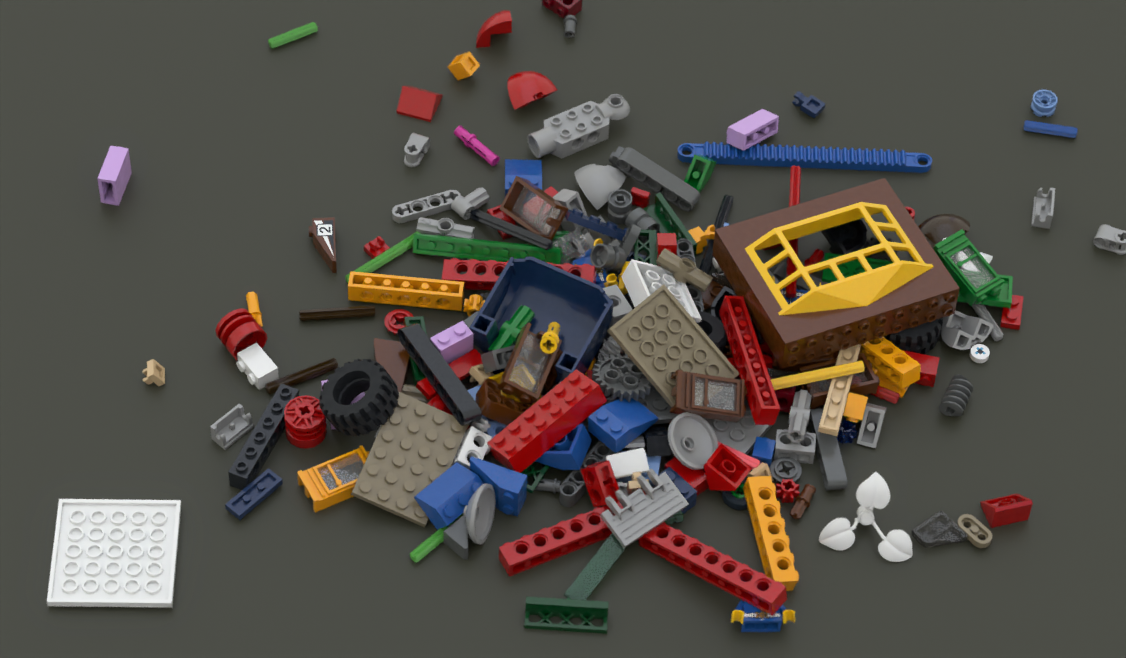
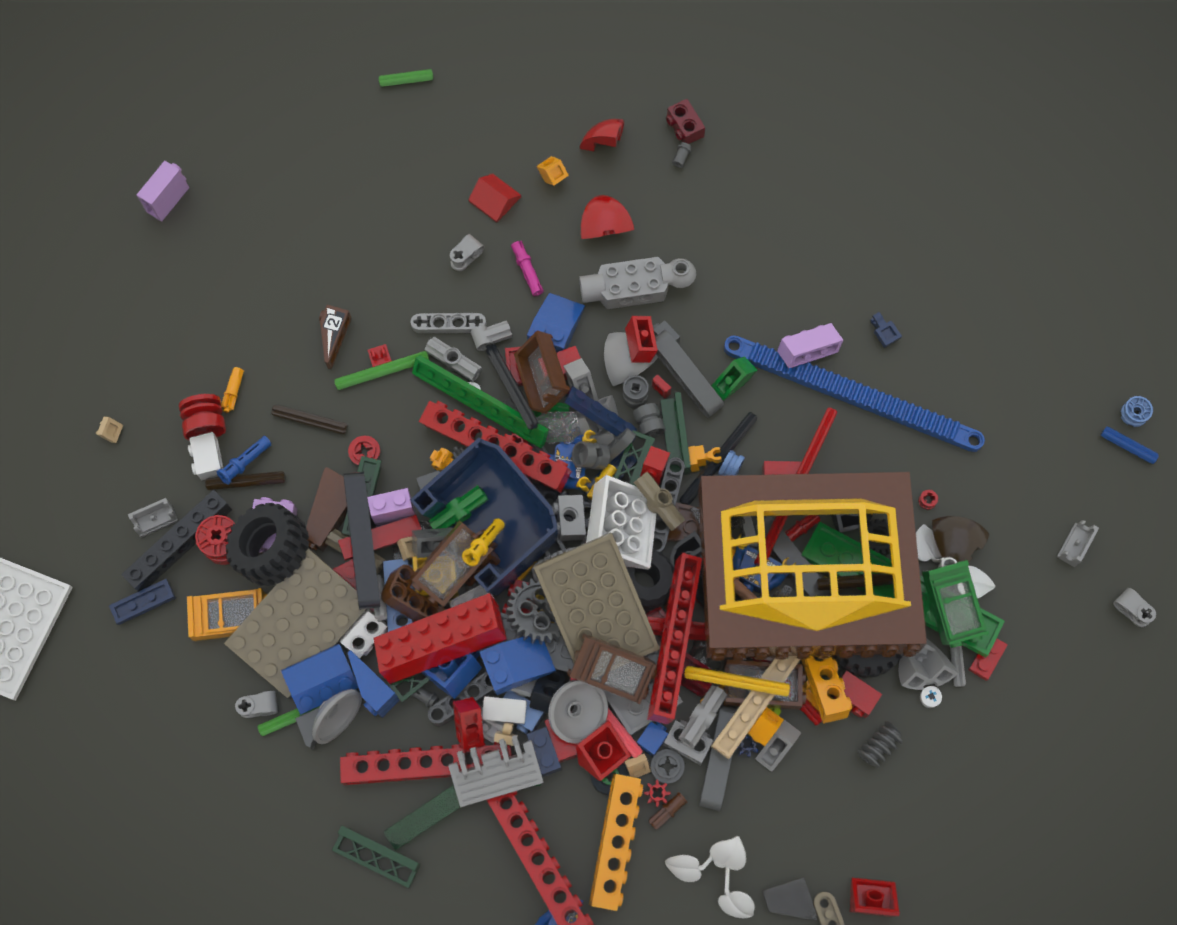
camera: 25 degrees right, 20 degrees up
(291, 361) = (237, 465): none -> blue pin
(403, 536) = (261, 705): none -> light grey piece
(406, 291) = (381, 420): light orange brick -> none
(609, 158) = (641, 339): none -> red brick

